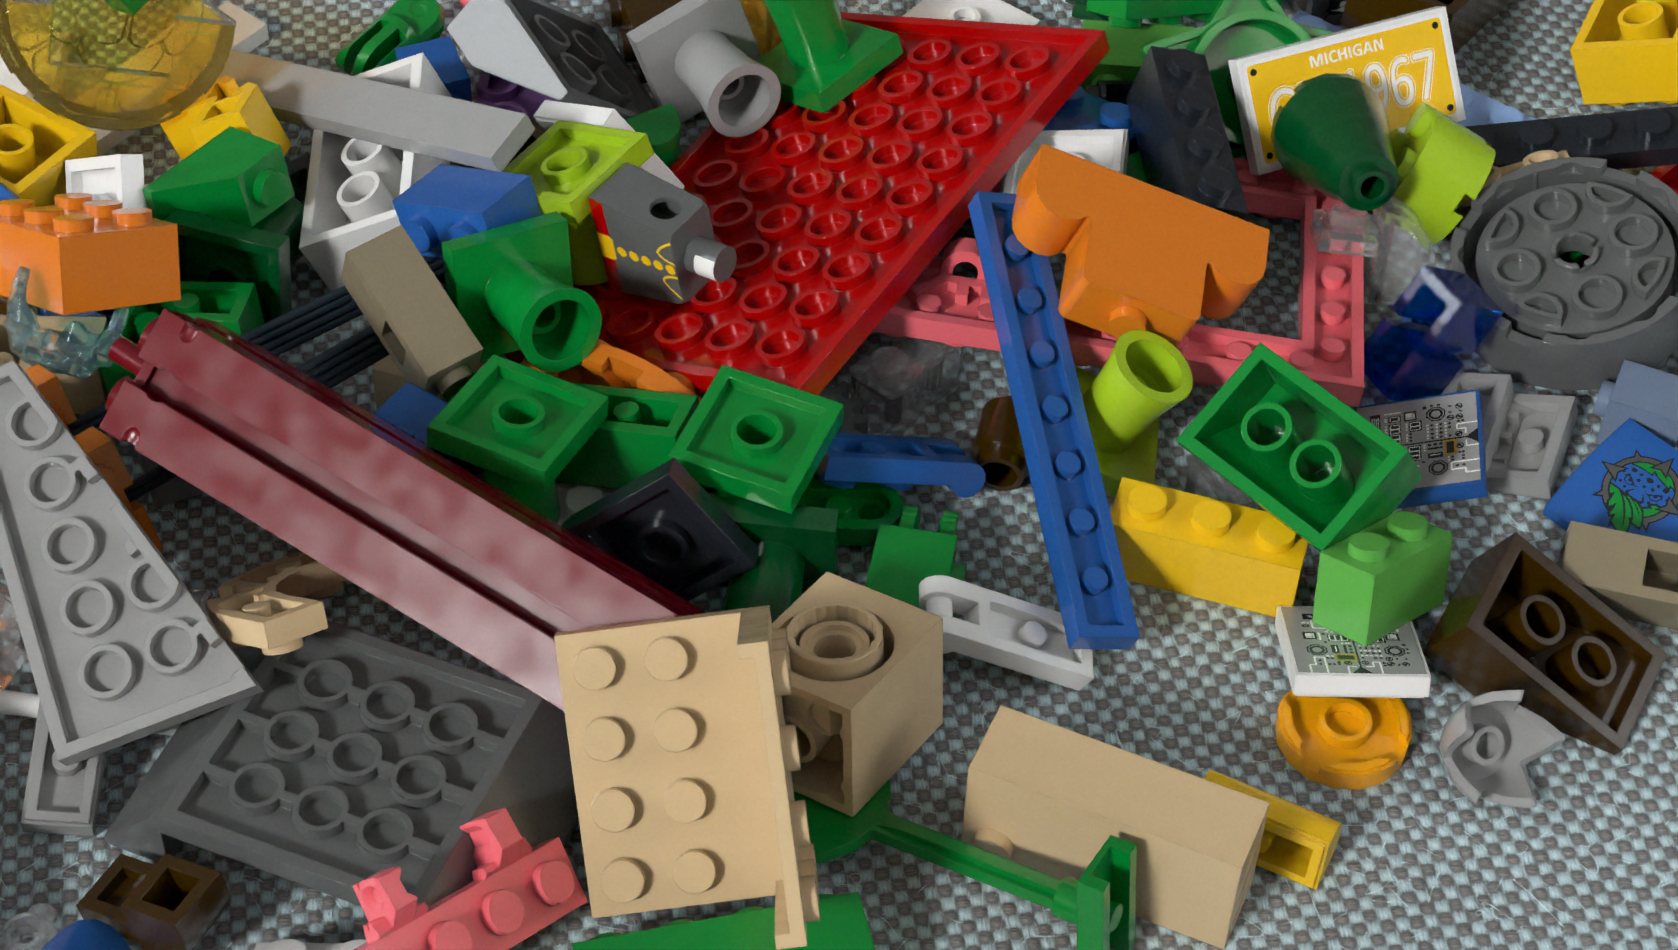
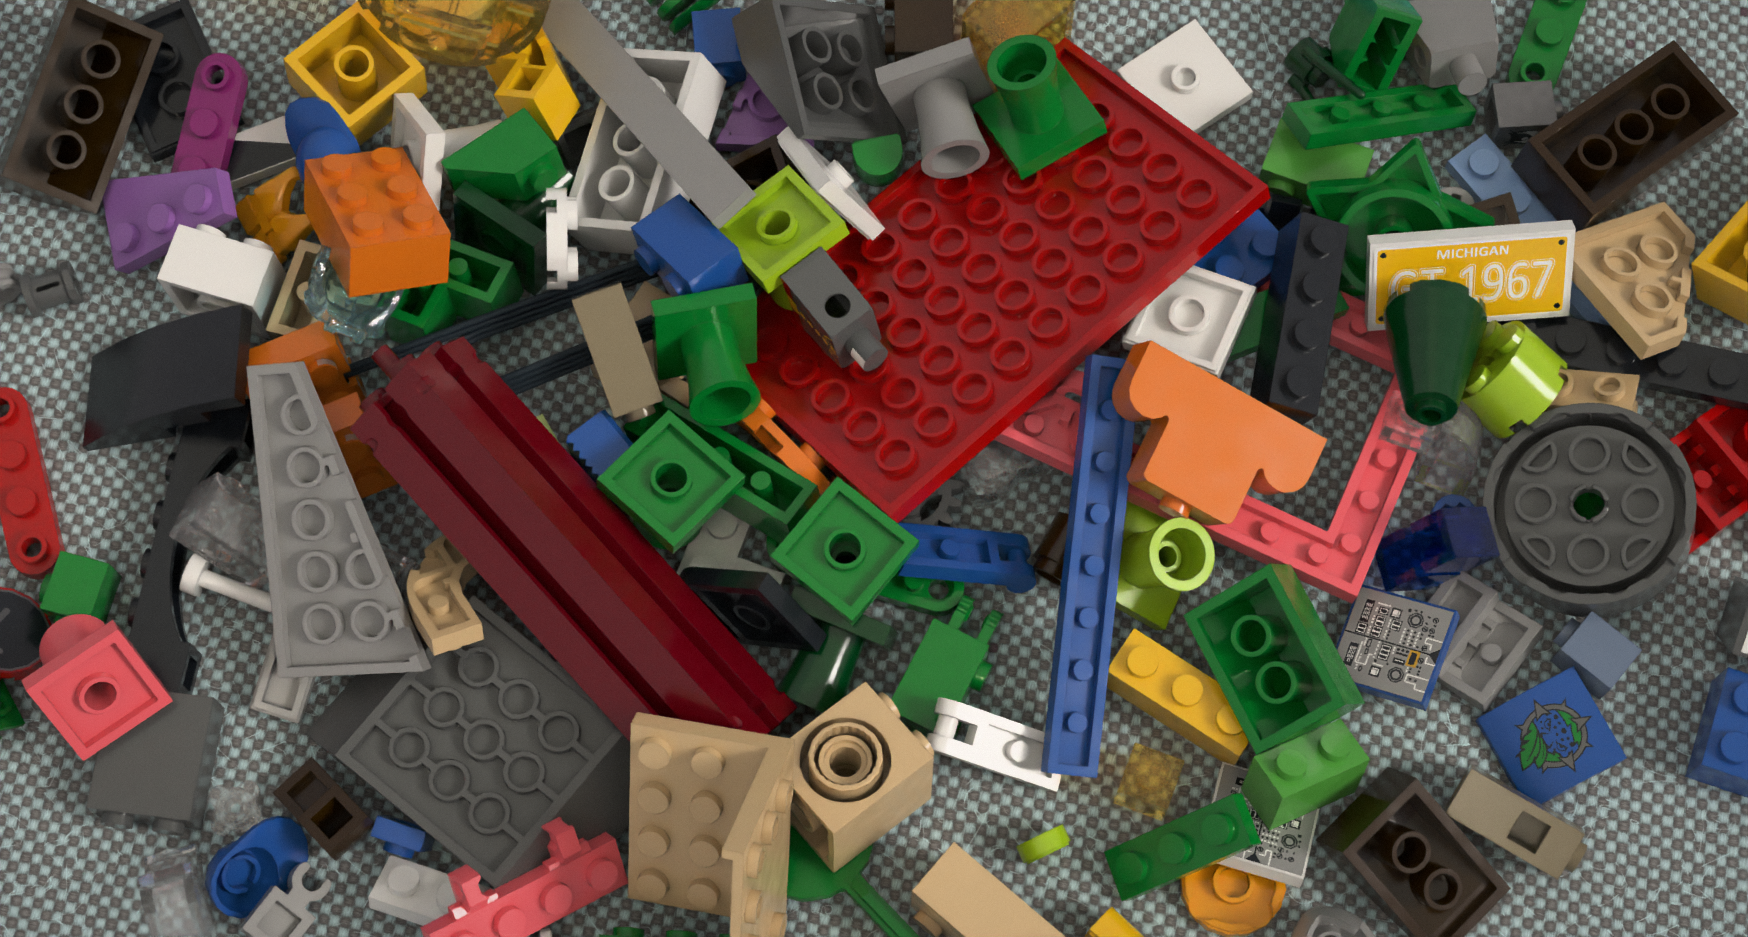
camera: 20 degrees right, 25 degrees up
(269, 910) = (401, 836): none -> blue plate
(312, 247) = (559, 255): none -> white plate
(1107, 723) = (1043, 844): none -> lime tile
(1201, 637) = (1148, 781): none -> clear yellow brick
(1272, 678) = (1182, 847): none -> green plate
(1524, 72) = (1638, 276): none -> tan plate

